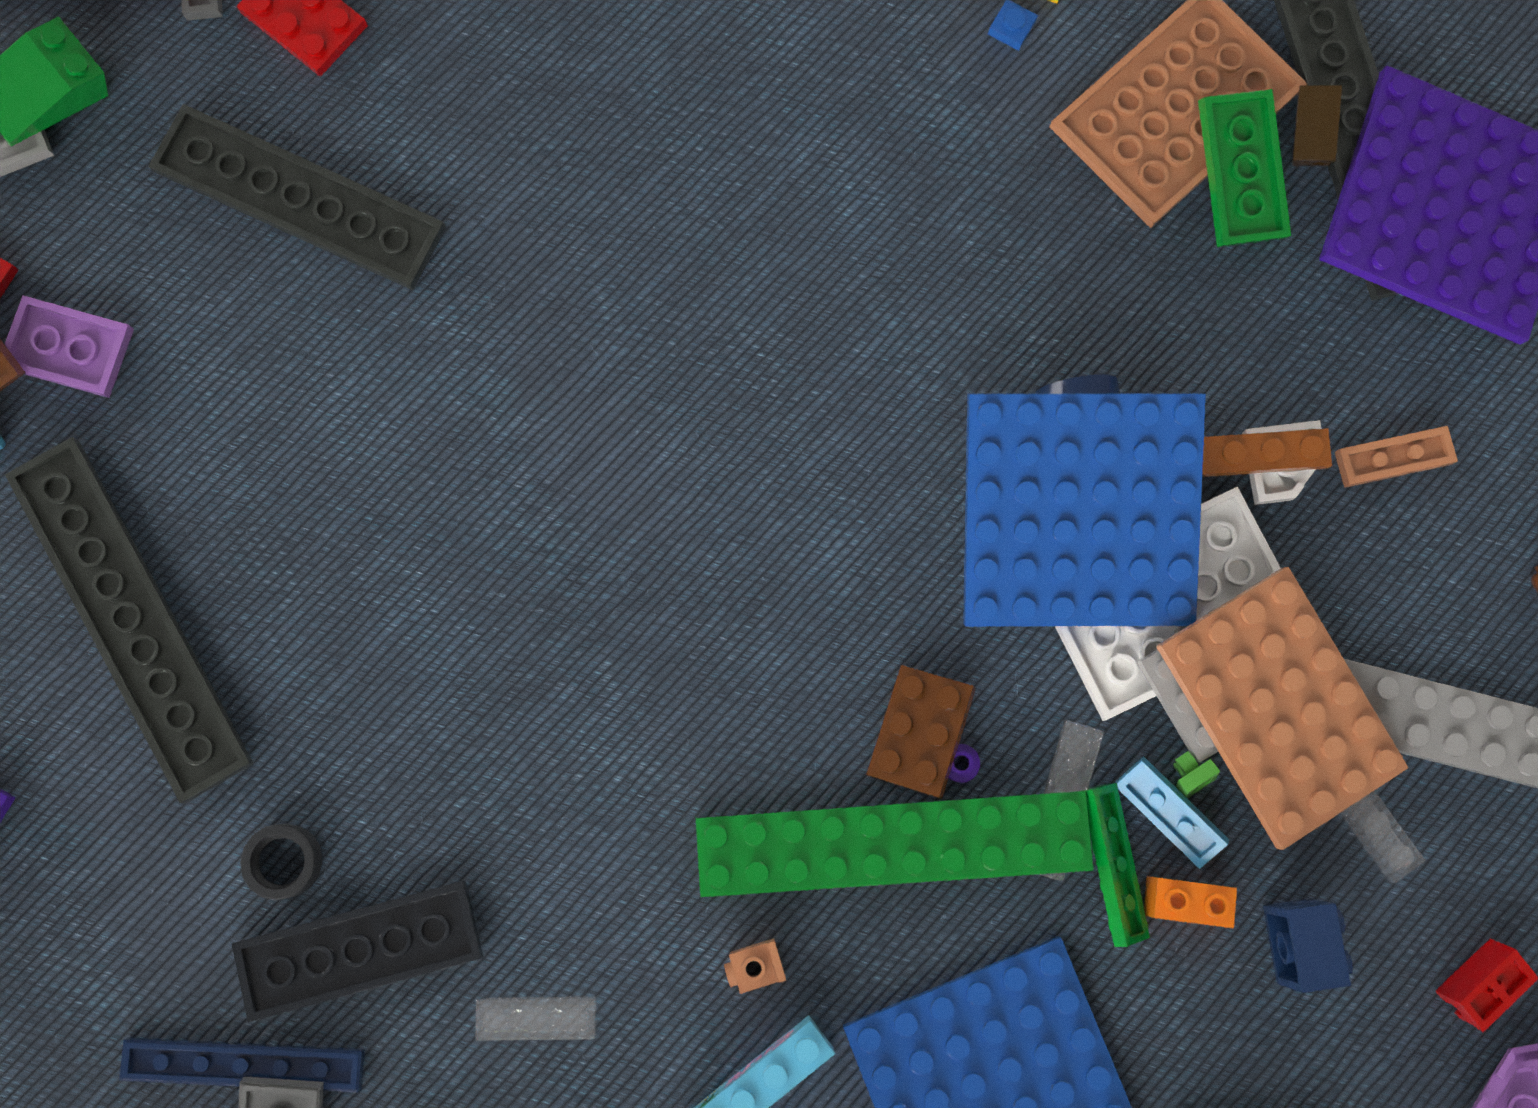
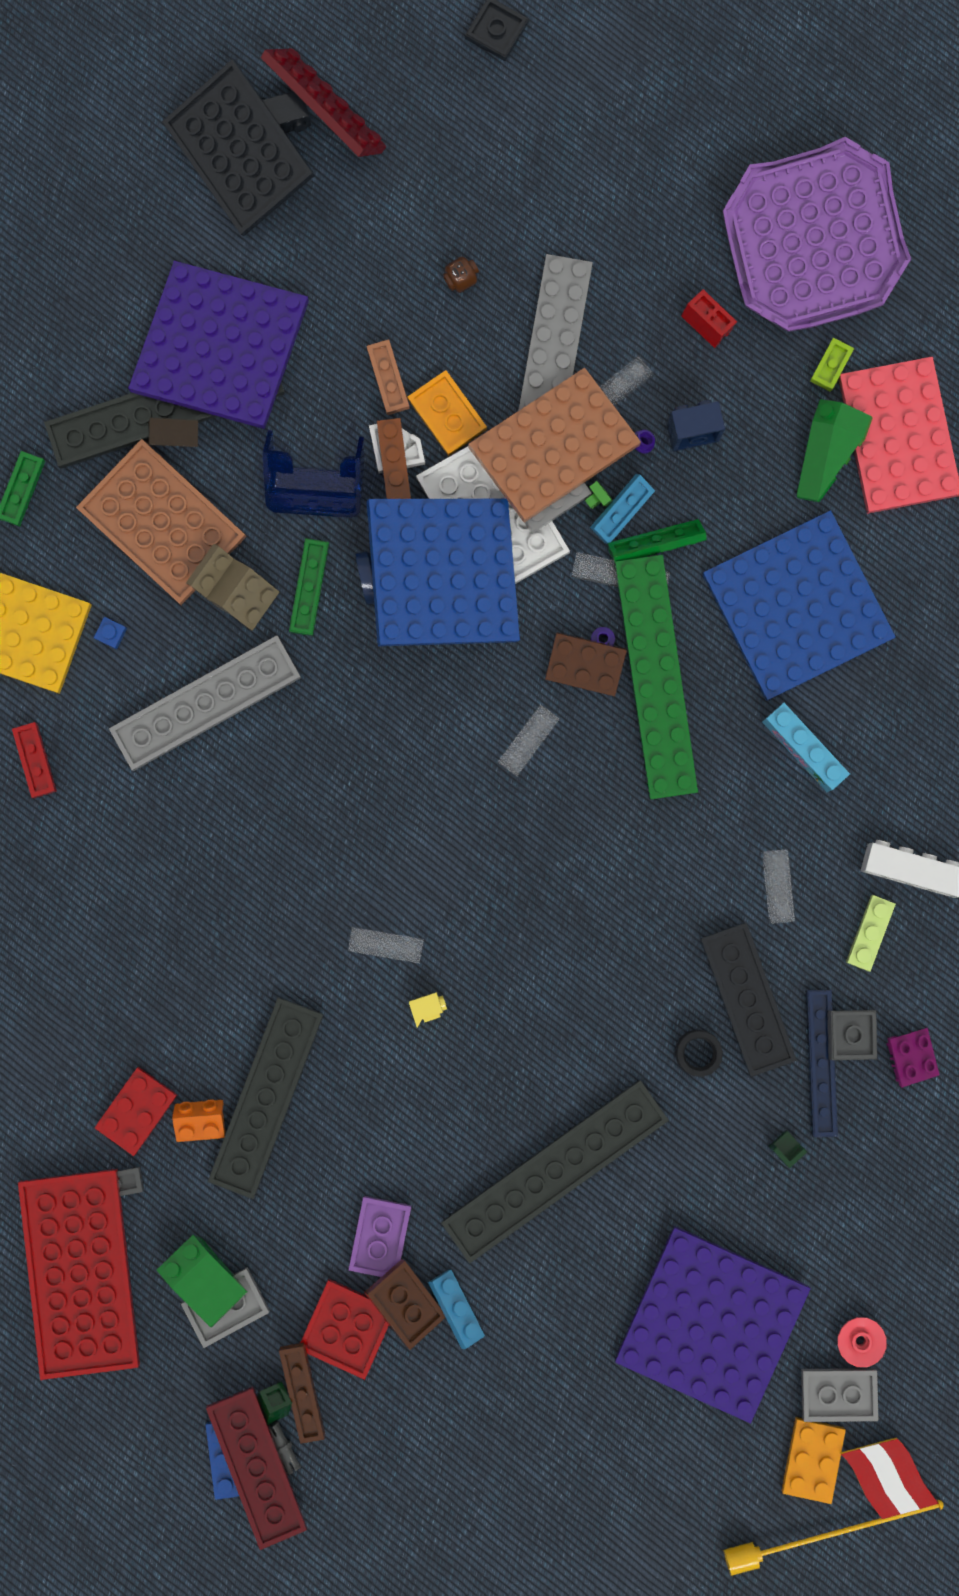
camera: 90 degrees left, 5 degrees up
(107, 994) = (787, 1149): none -> dark green panel
(276, 99) = (199, 1120): none -> orange bracket
(402, 441) = (427, 1007): none -> light yellow window
(506, 387) = (385, 945): none -> clear plate
(766, 955) = (727, 751): nougat brick -> none
(805, 630) = (528, 740): none -> clear plate
(899, 151) = (204, 703): none -> light grey plate
(1068, 315) = (309, 587): none -> green tile
(1073, 196) = (232, 587): none -> dark tan bracket
(1190, 902) = (675, 496): orange brick -> none
(1220, 320) = (312, 490): none -> clear blue windscreen
(1244, 167) = (205, 478): green plate -> none
(1285, 864) = (647, 441): none -> dark purple plate
(1337, 543) = (447, 413): none -> light orange plate

